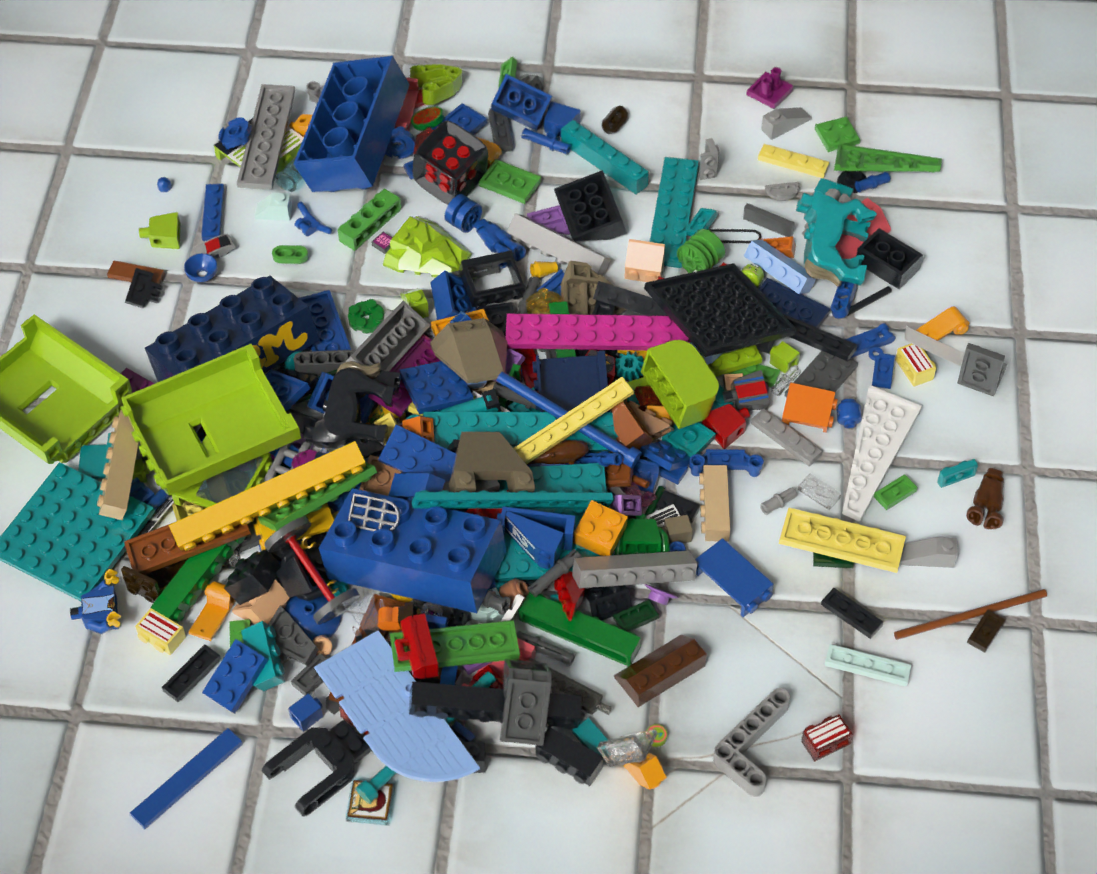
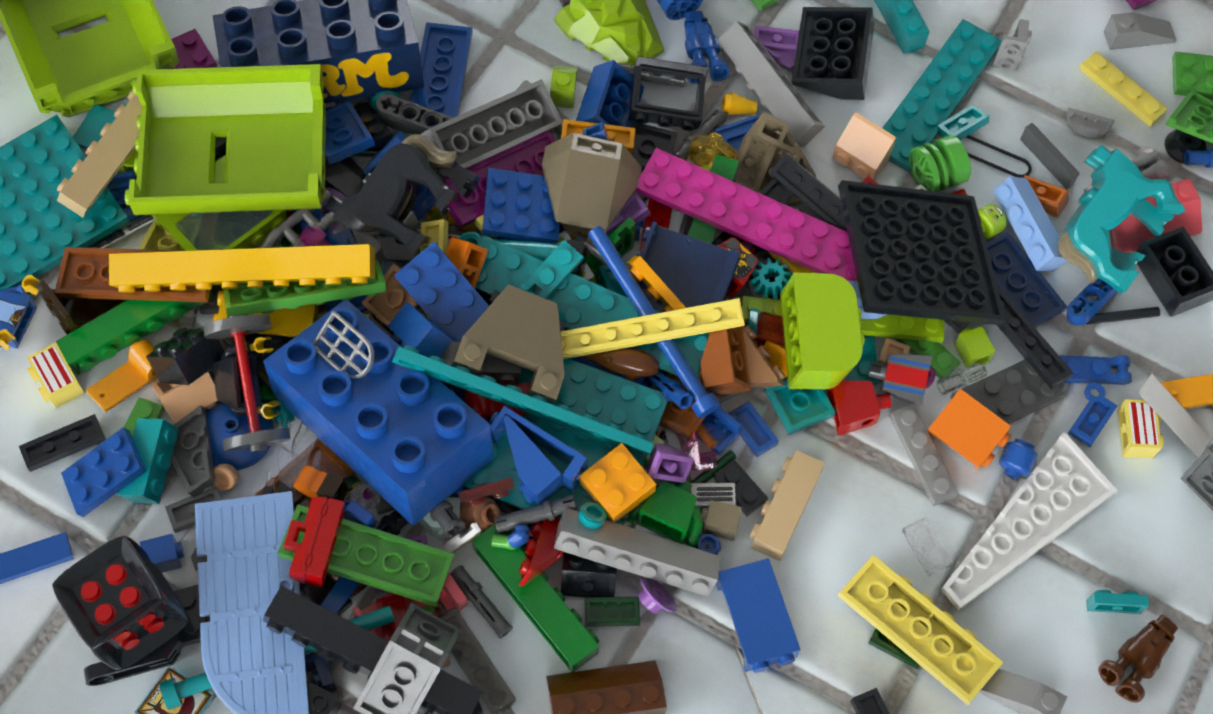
camera: 20 degrees right, 10 degrees up
(307, 739) = (120, 603): none -> black piece
(364, 308) = (496, 67): green plate -> none
(485, 412) = (553, 270): none -> teal plate
(508, 577) = (475, 495): none -> clear red plate
(548, 597) = (512, 541): none -> arm
(556, 395) = (656, 287): none -> light orange plate
(594, 555) = (592, 515): none -> teal tile
(665, 455) = (756, 415): blue plate -> none
(732, 458) = (832, 452): blue plate -> none
(778, 500) = (869, 536): light grey axle -> none
(824, 185) = (1148, 138): teal tile -> none
(895, 492) = (1023, 592): bright green plate -> none

